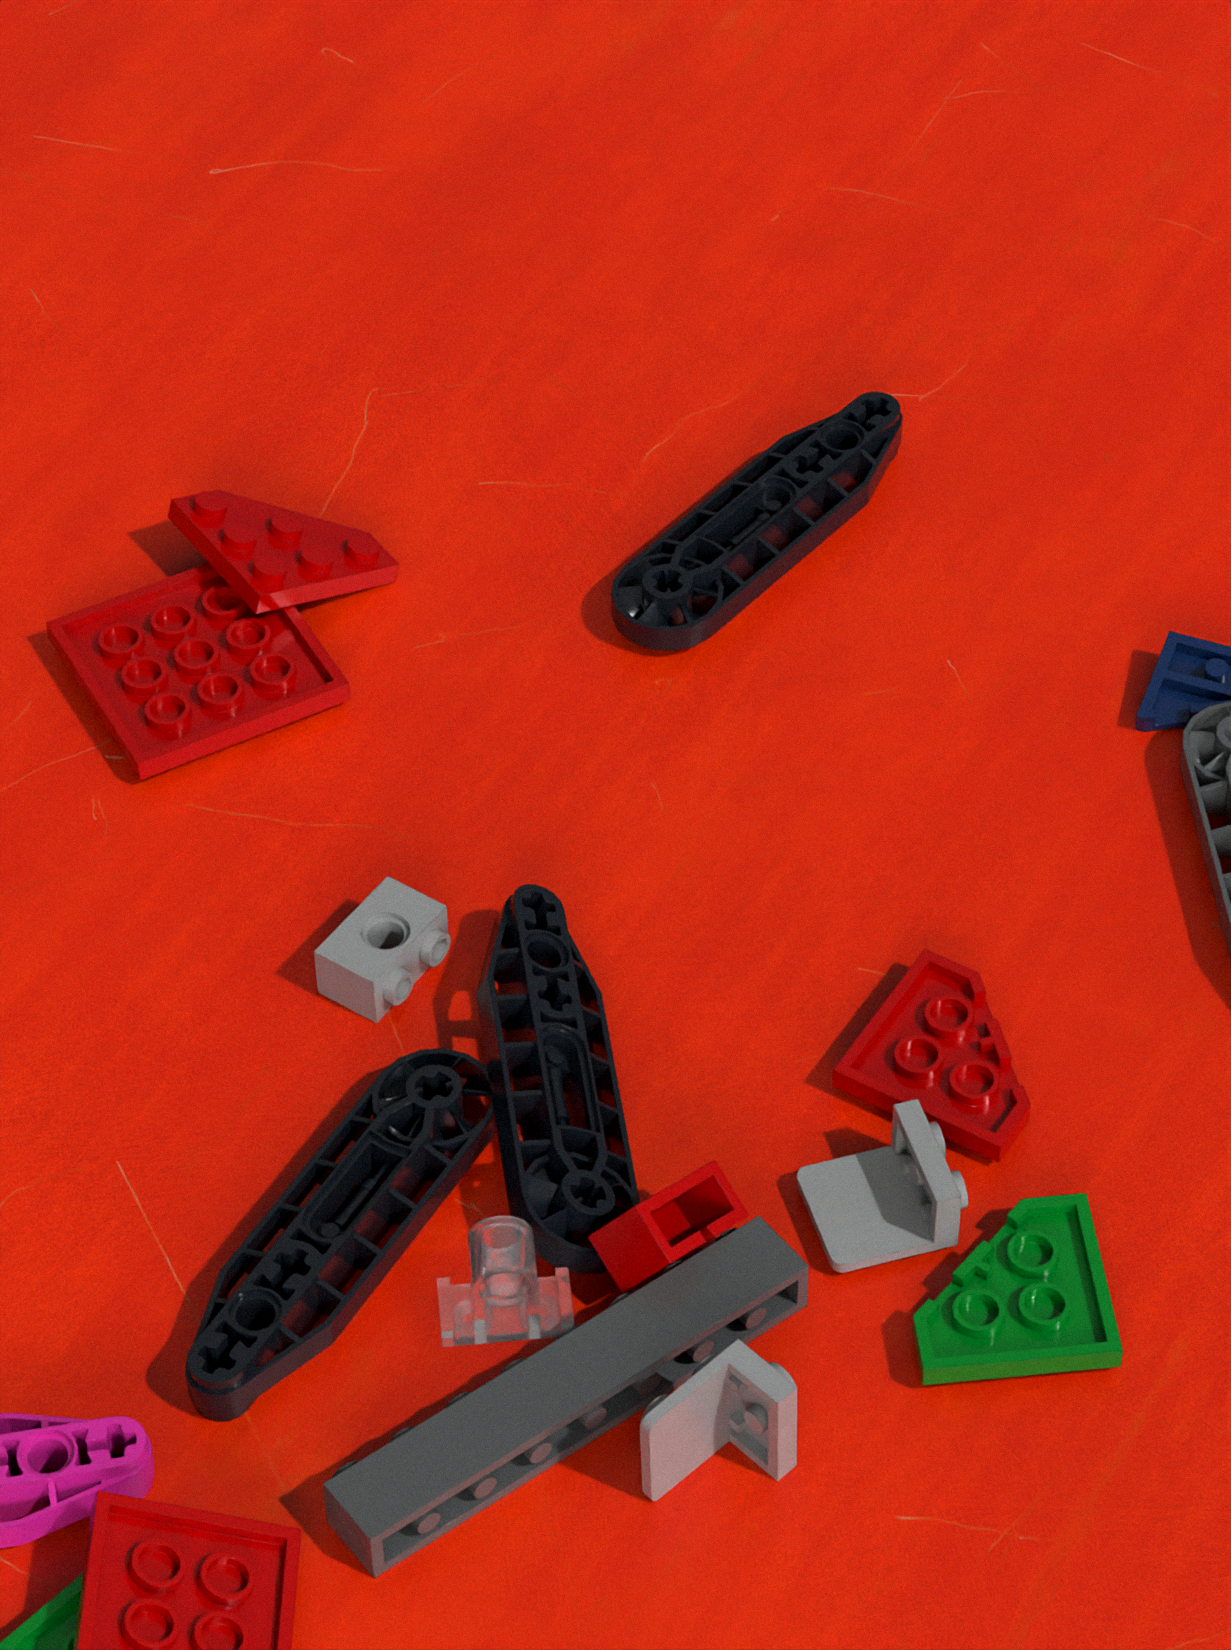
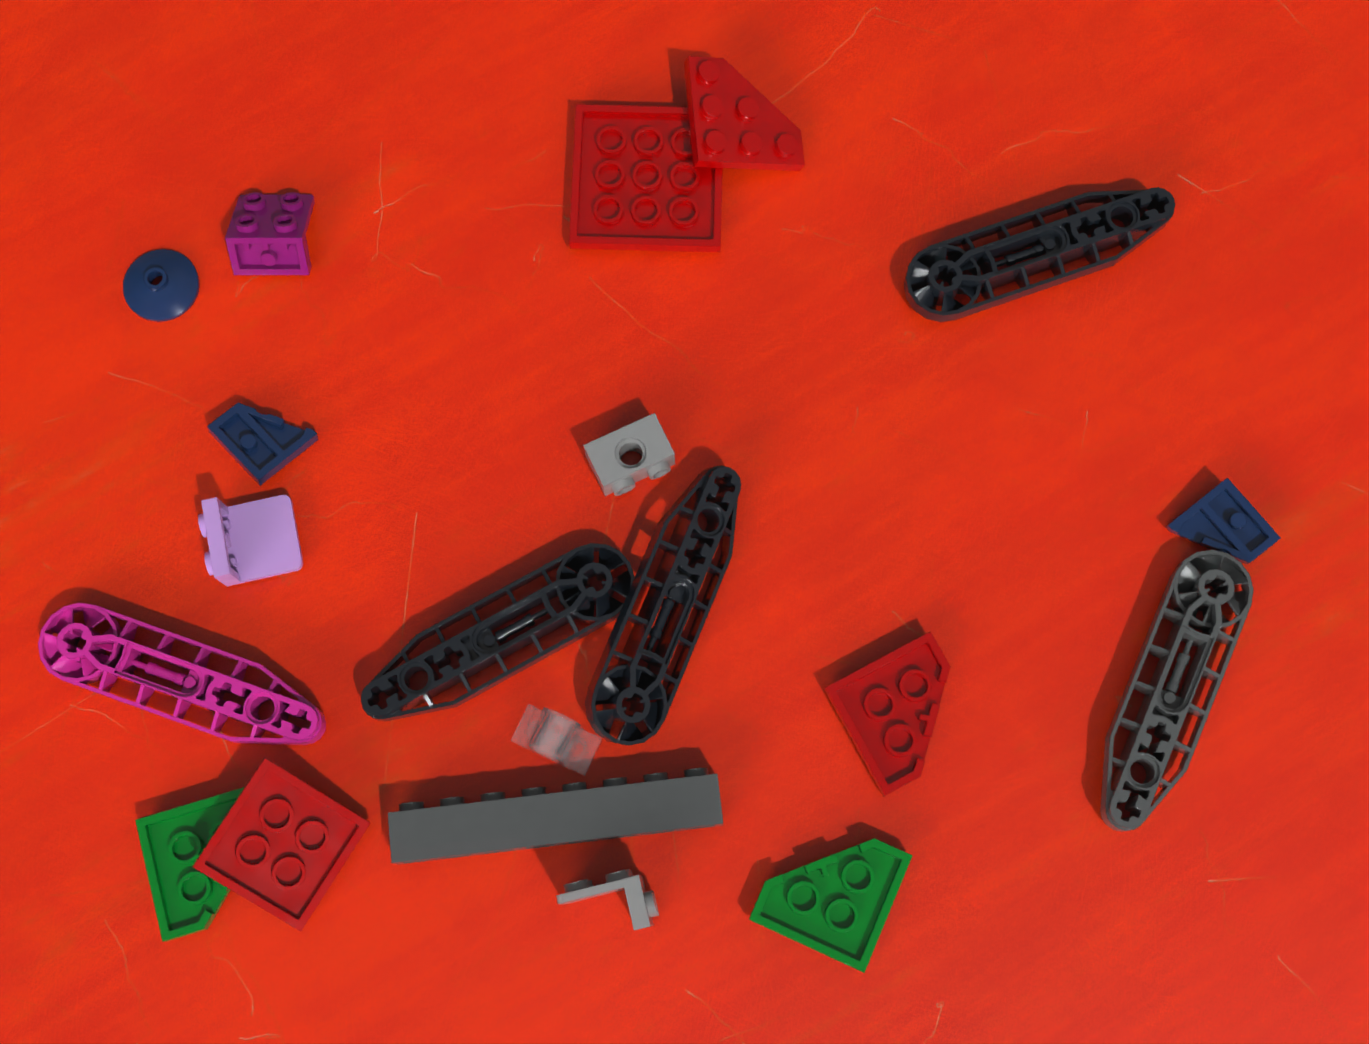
camera: 30 degrees right, 30 degrees up
(668, 1226) = (676, 744): red piece -> none
(886, 1198) = (799, 788): light grey bracket -> none

